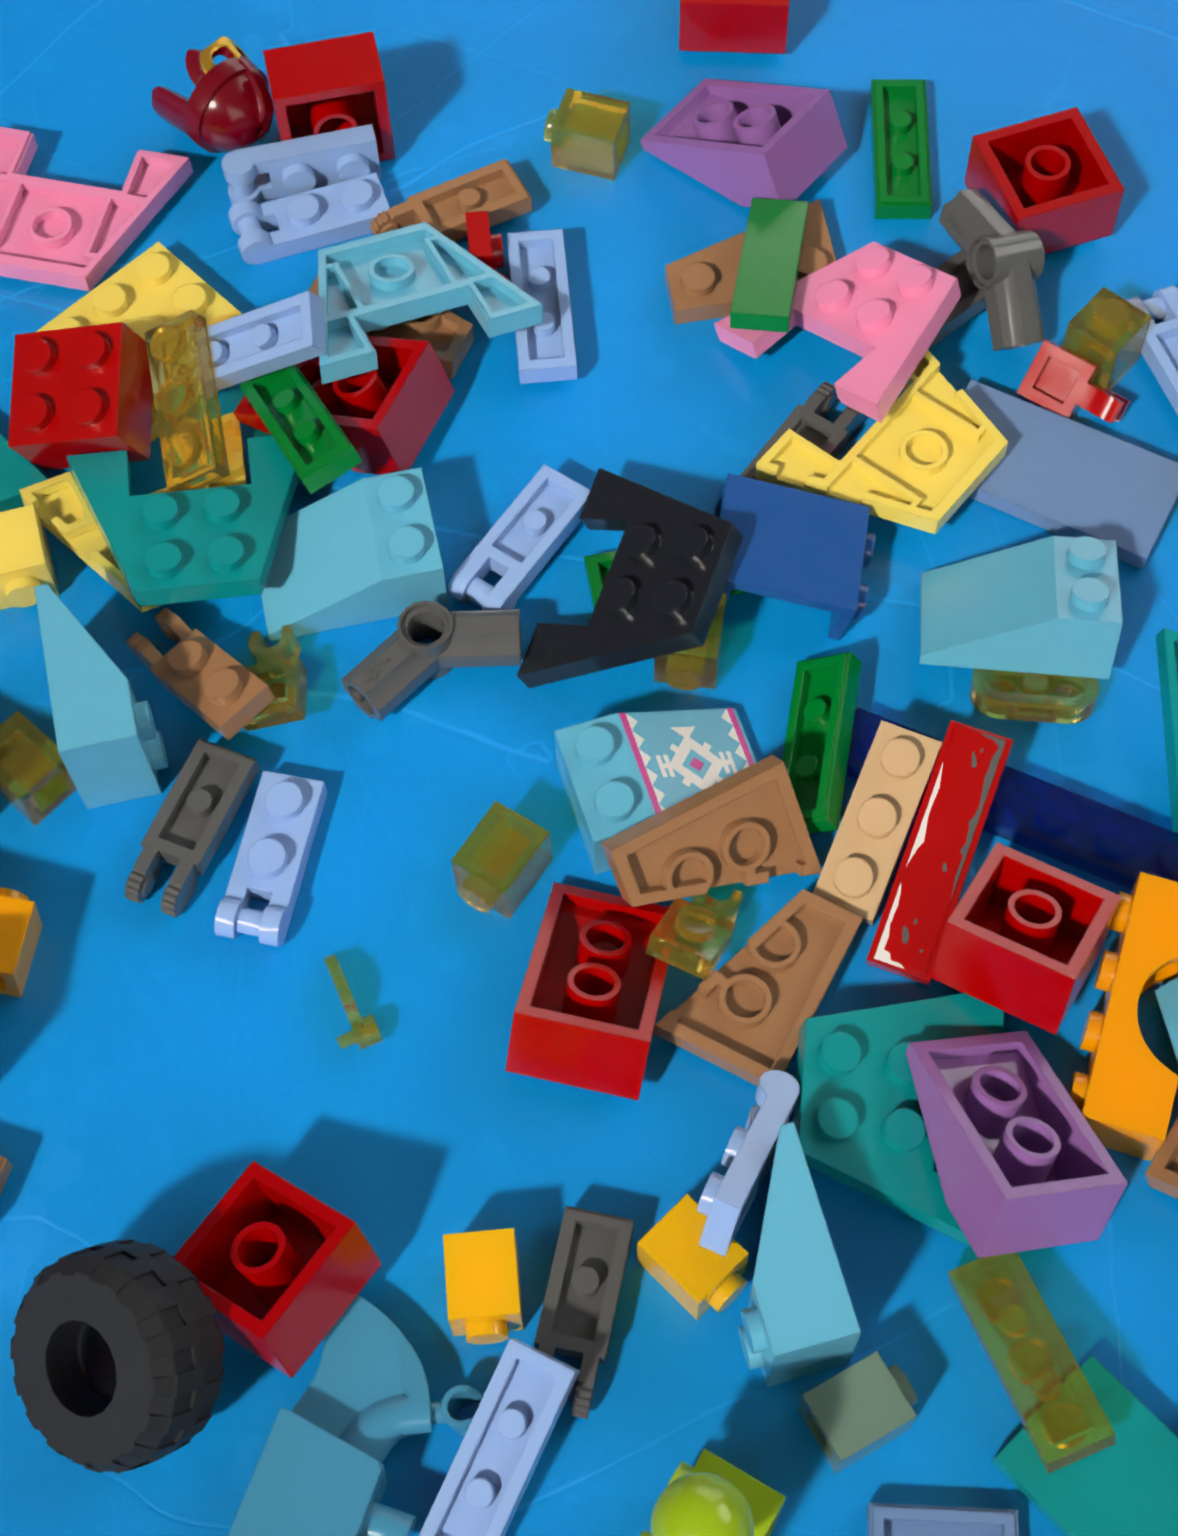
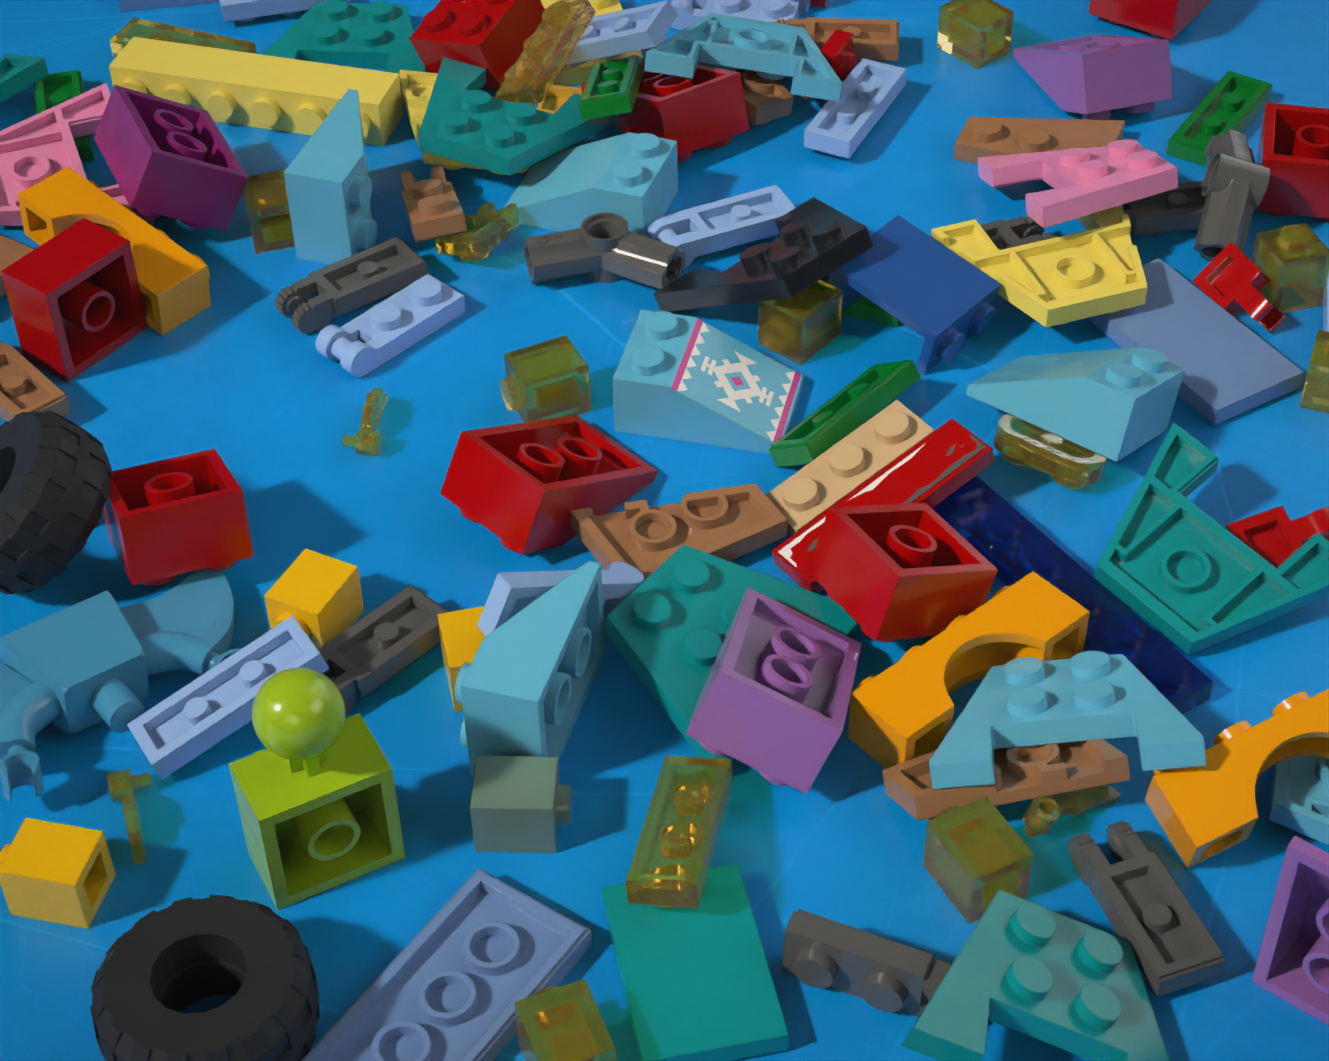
camera: 30 degrees right, 20 degrees down
(695, 933) = (651, 475): clear yellow plate -> none
(718, 837) = (707, 416): medium nougat wing -> none
(769, 265) = (1043, 130): green tile -> none

